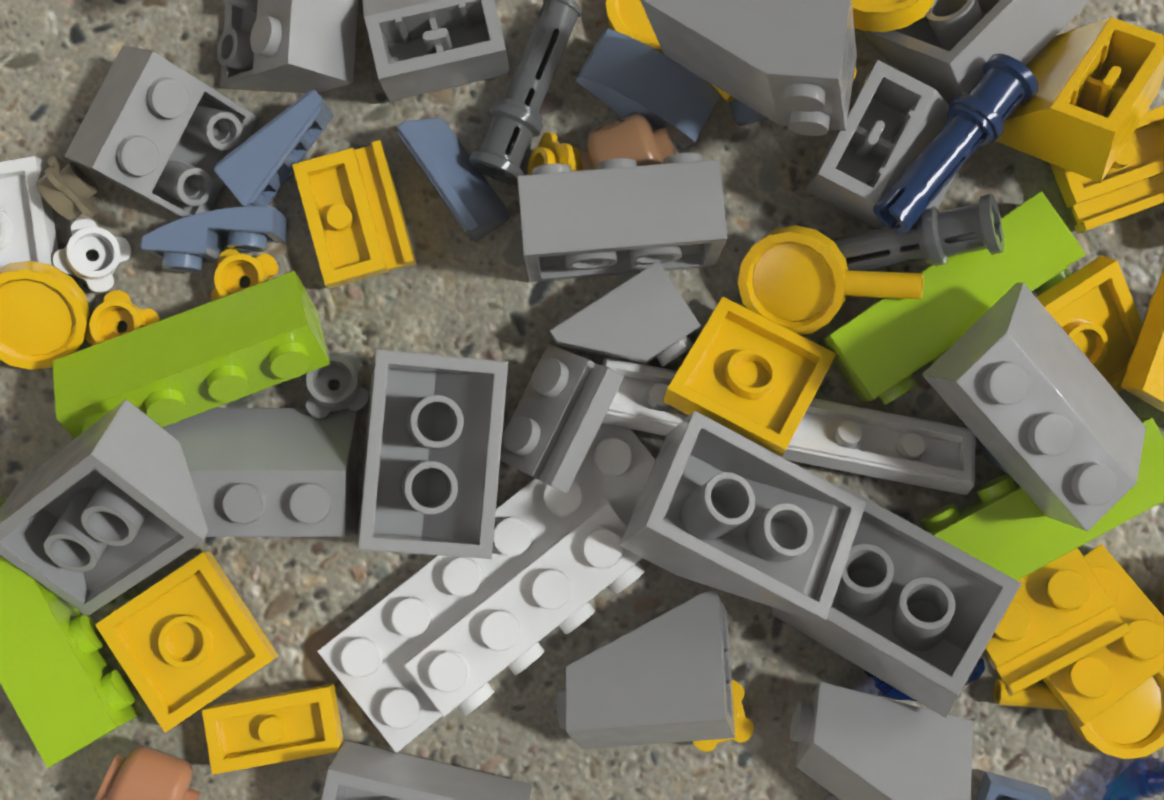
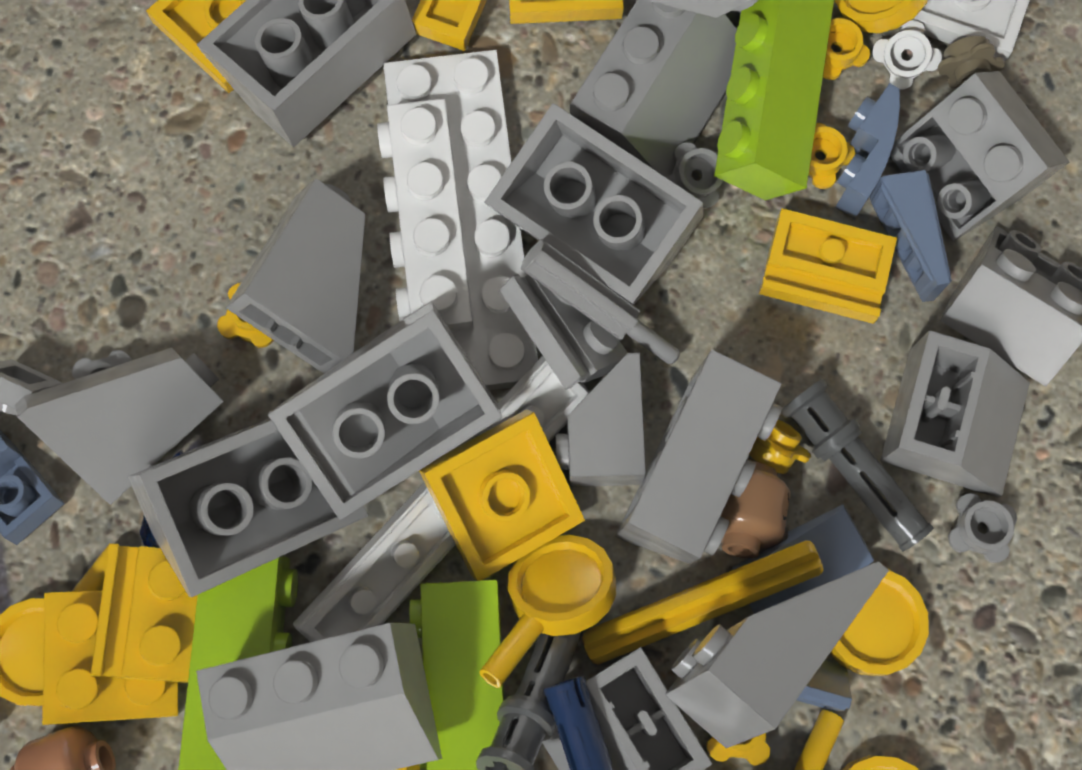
camera: 120 degrees right, 10 degrees down
(452, 177) = (800, 359): sand blue slope -> none
(524, 404) = (593, 298): none -> light grey axle
(733, 148) = (702, 602): none -> yellow axle

